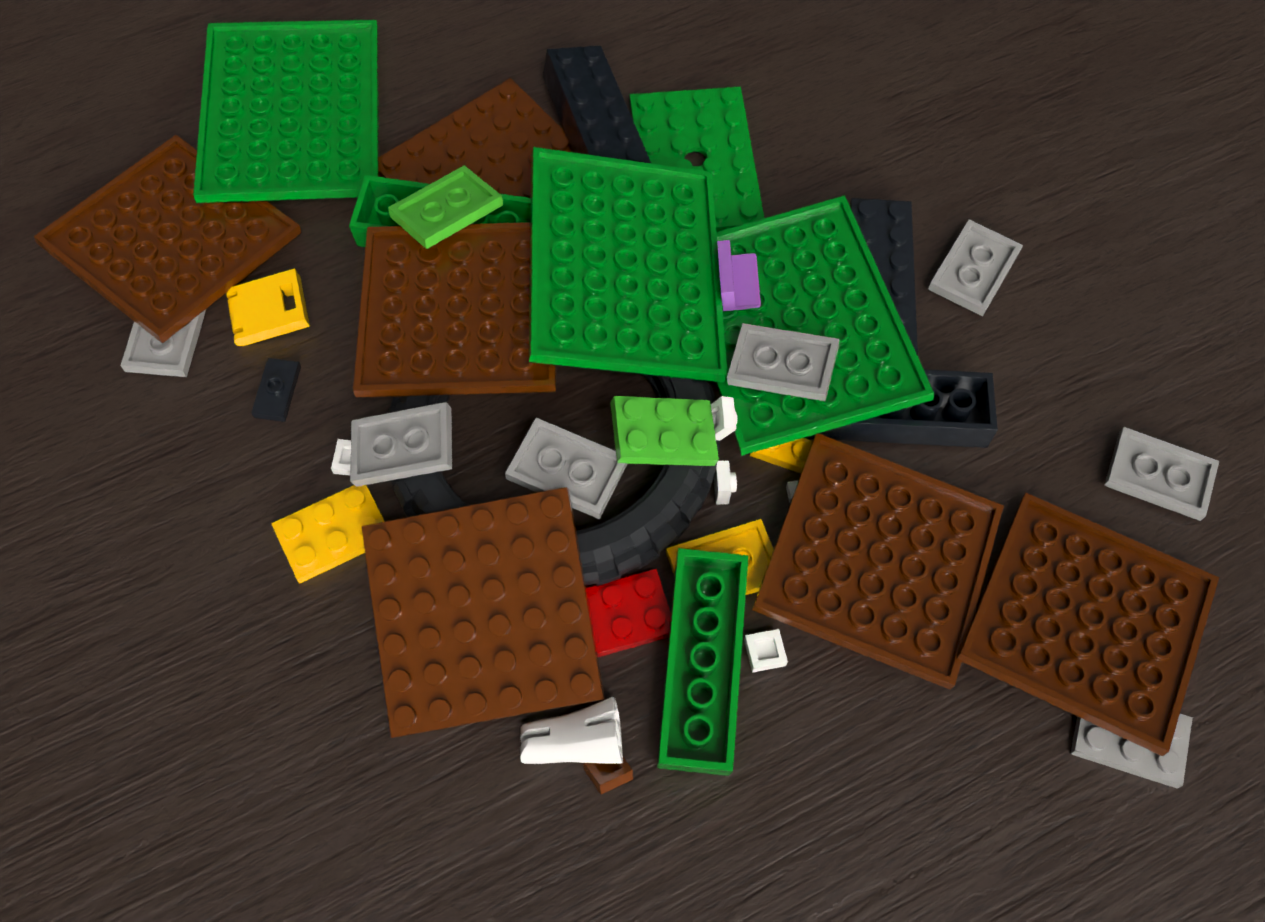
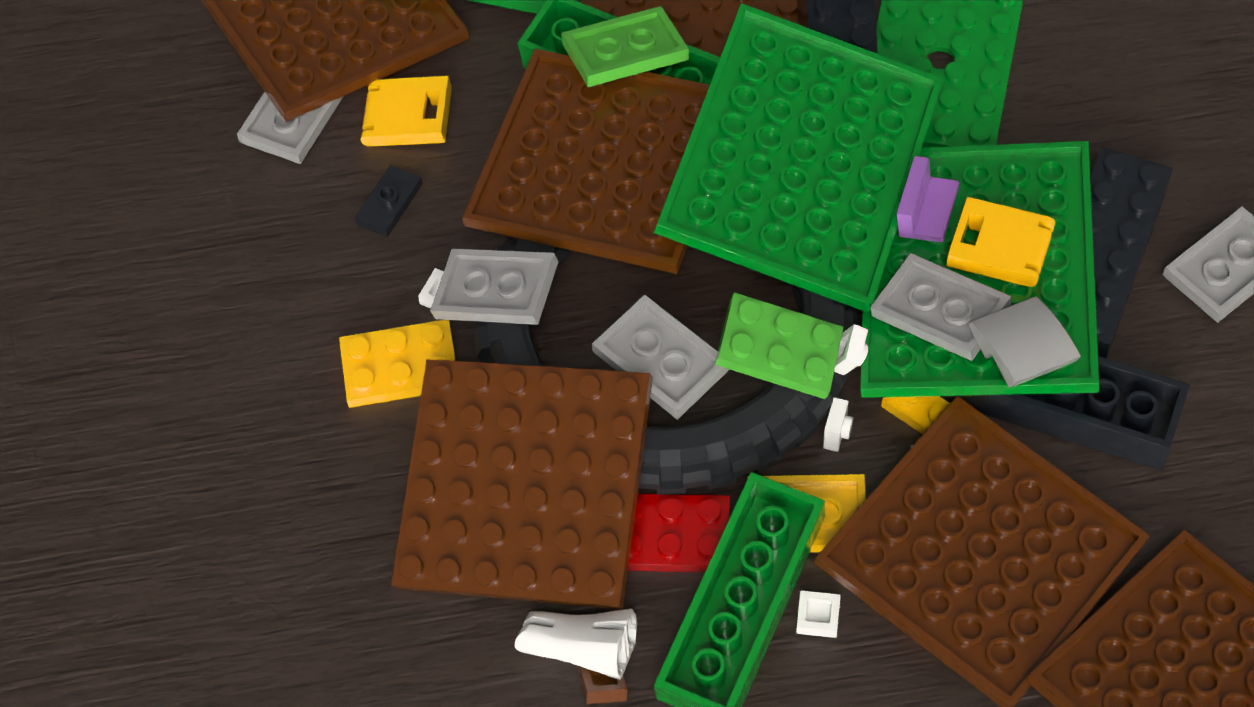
camera: 25 degrees right, 5 degrees down
(818, 295) = (1005, 243): none -> yellow container
(865, 373) = (1024, 341): none -> light grey slope

